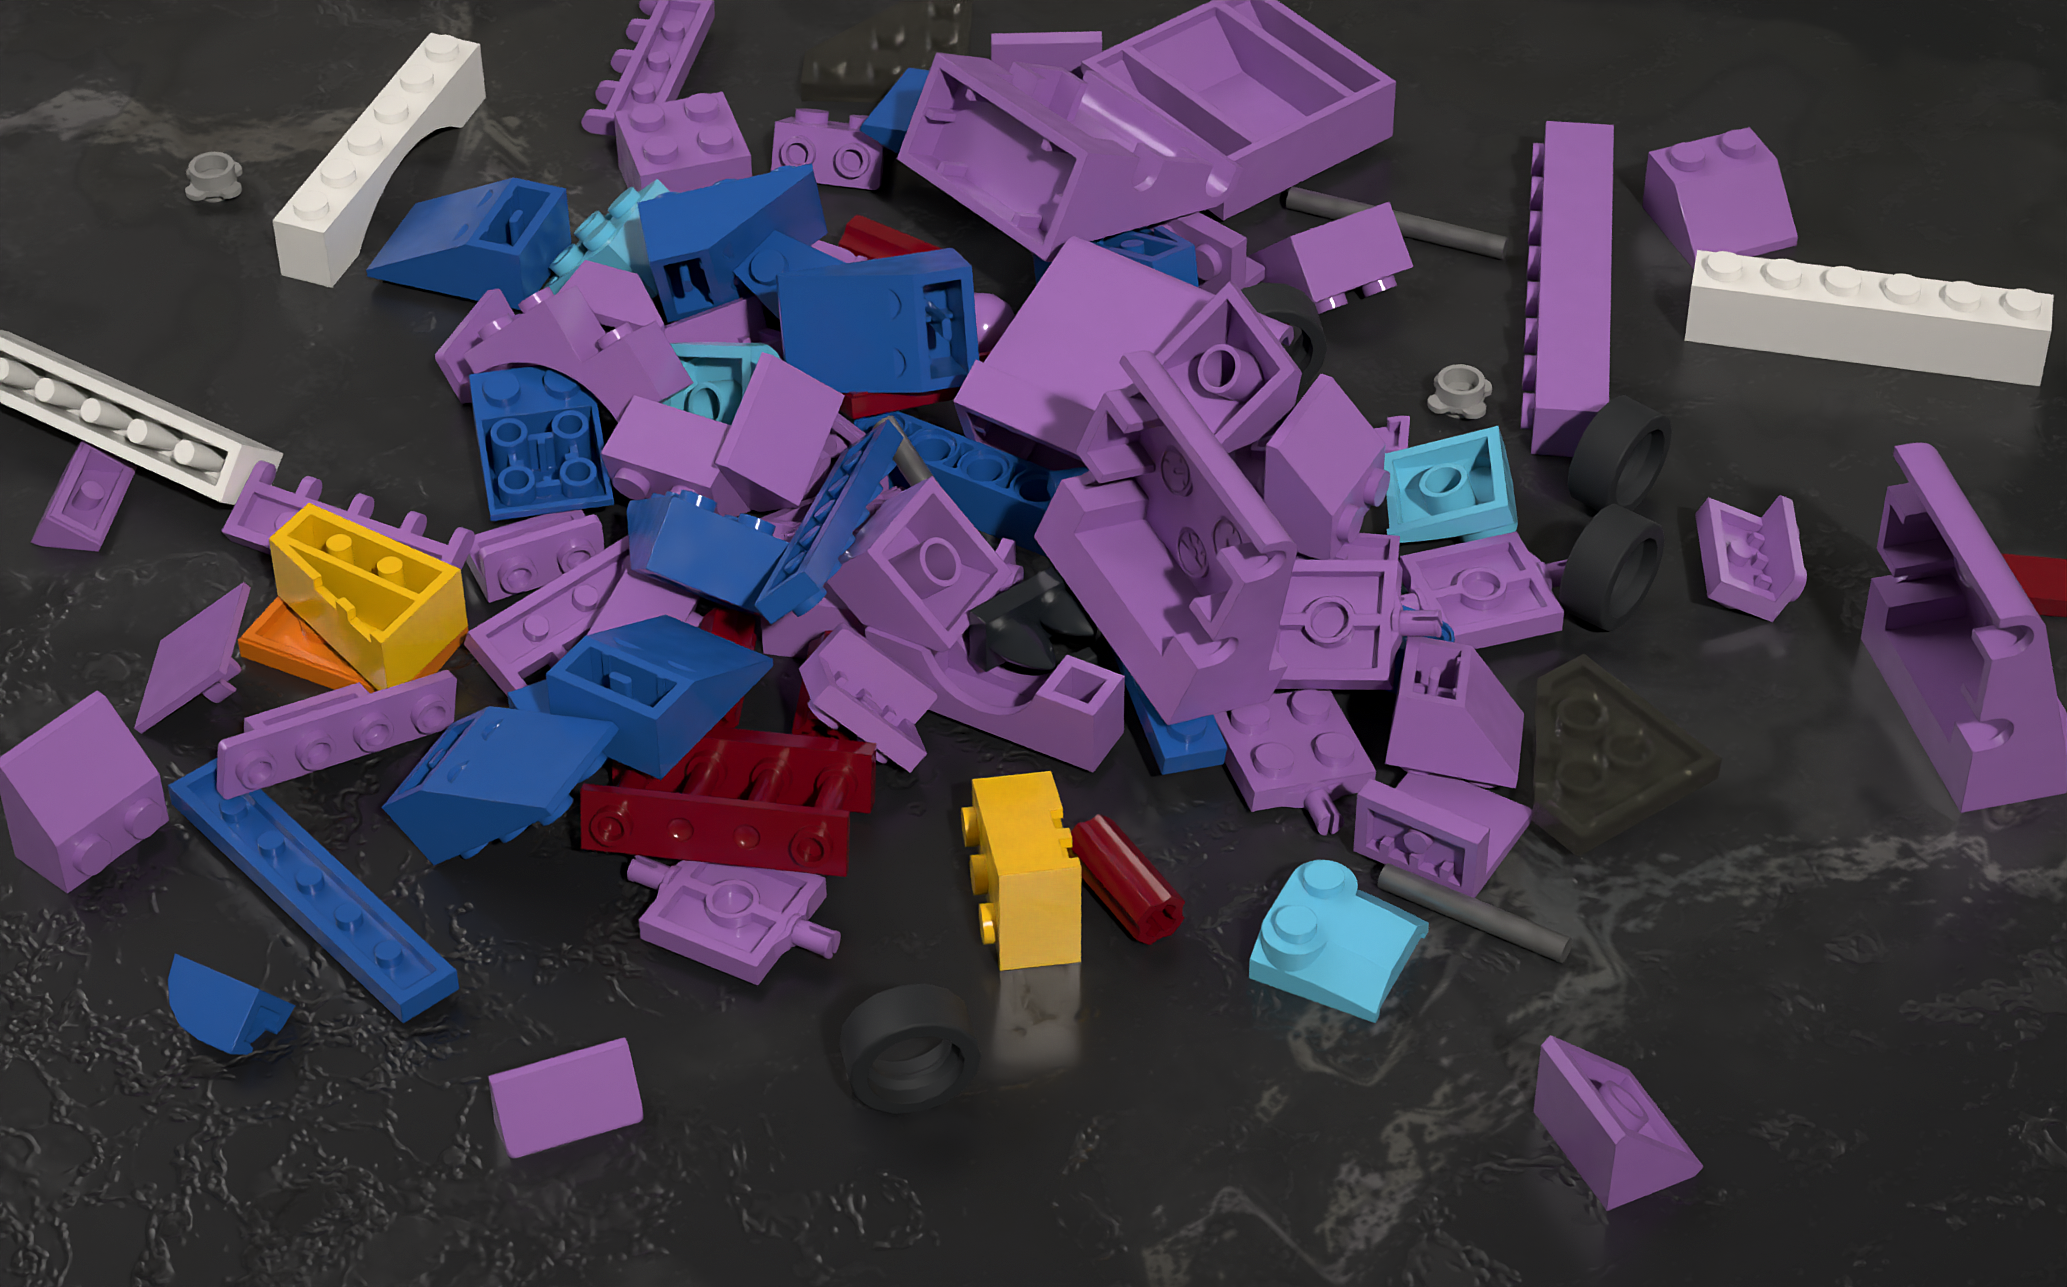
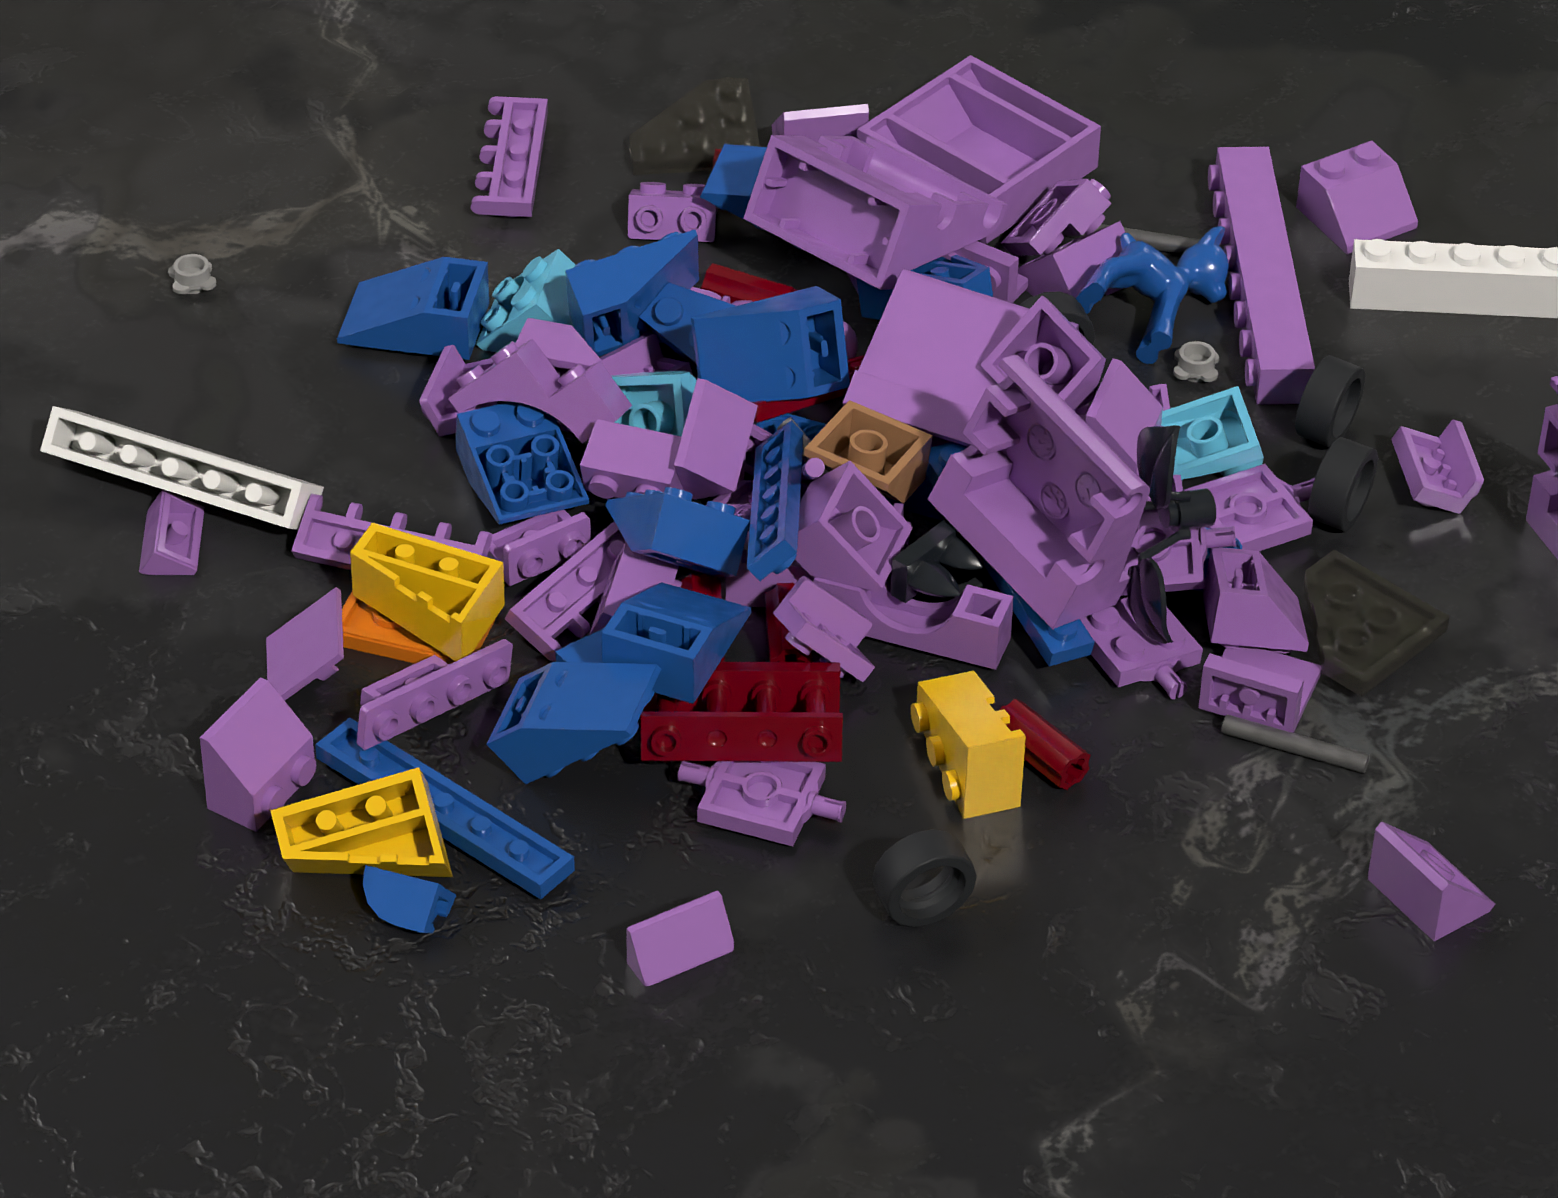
camera: 10 degrees left, 0 degrees up
(204, 900) = (370, 824): none -> yellow wedge
(329, 214) = (303, 285): white arch -> none
(681, 143) = (564, 218): medium lavender brick -> none
(883, 482) = (812, 469): none -> medium lavender bar
(982, 467) = (882, 448): none -> medium nougat slope
(1326, 186) = (1066, 210): none -> medium lavender plate
(1334, 941) = (1201, 773): medium azure slope -> none
(1360, 580) = (1176, 511): none -> black plant
(1423, 275) = (1153, 275): none -> blue animal

